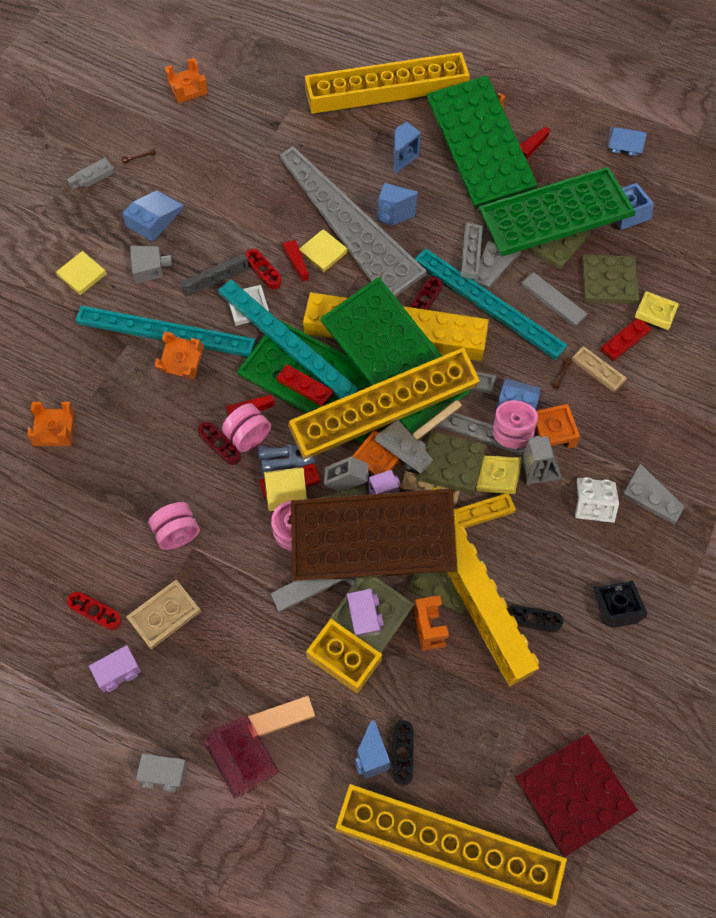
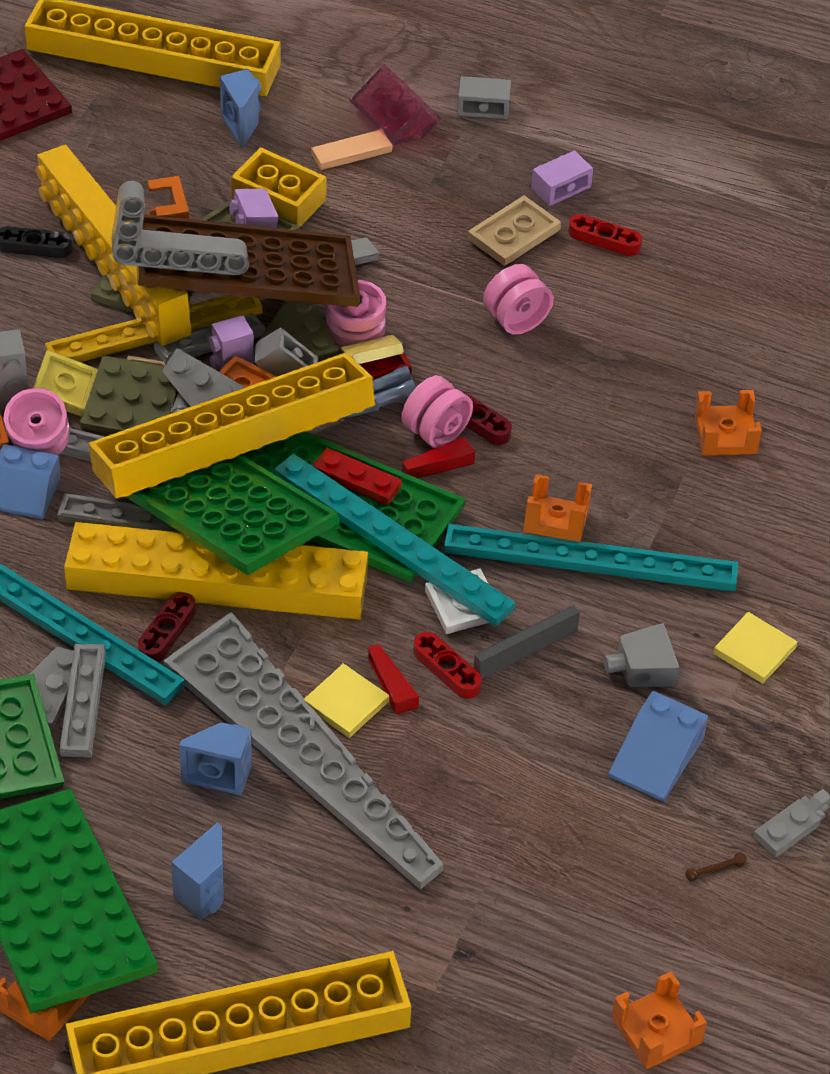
camera: 175 degrees right, 15 degrees down
(408, 769) = (204, 130): black beam -> none
(425, 510) = (168, 244): none -> light grey beam

